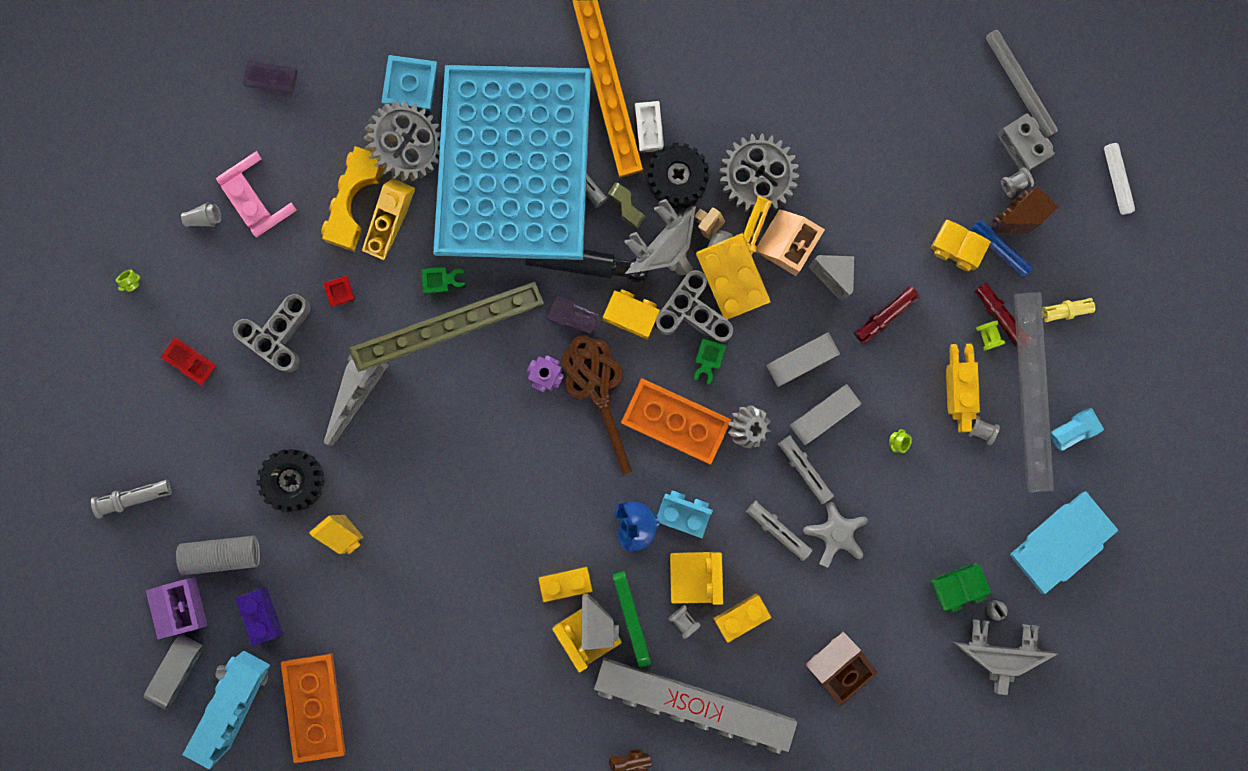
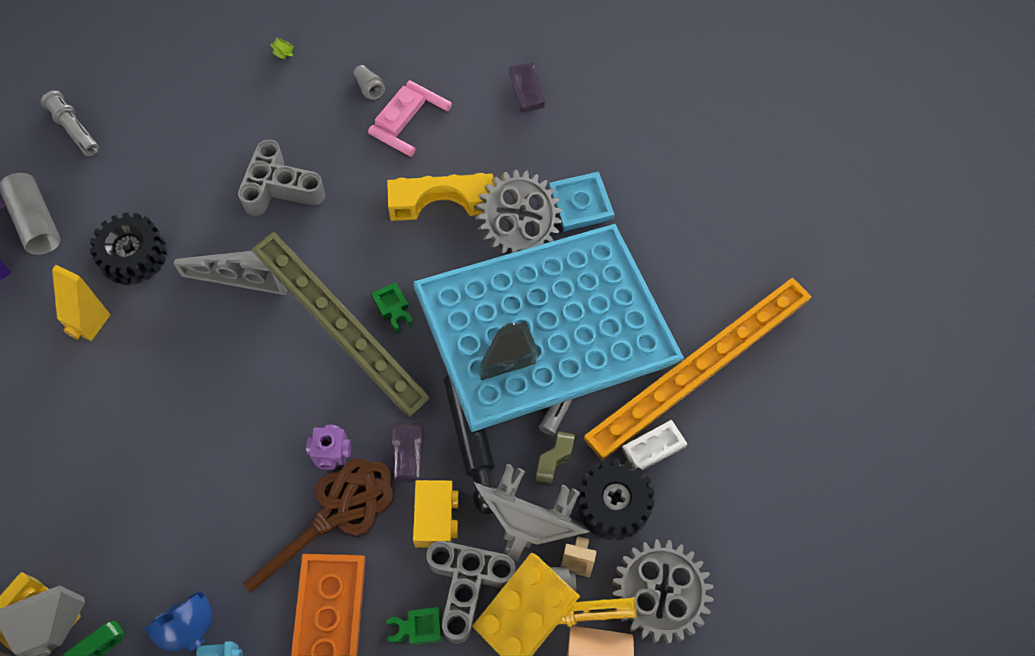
camera: 65 degrees right, 20 degrees down
(188, 361) = (224, 123): red slope -> none
(339, 291) = (342, 219): red plate -> none
(388, 217) = (438, 232): yellow slope -> none
(531, 201) = (510, 350): none -> clear smoke slope
(565, 584) = (91, 572): yellow plate -> none

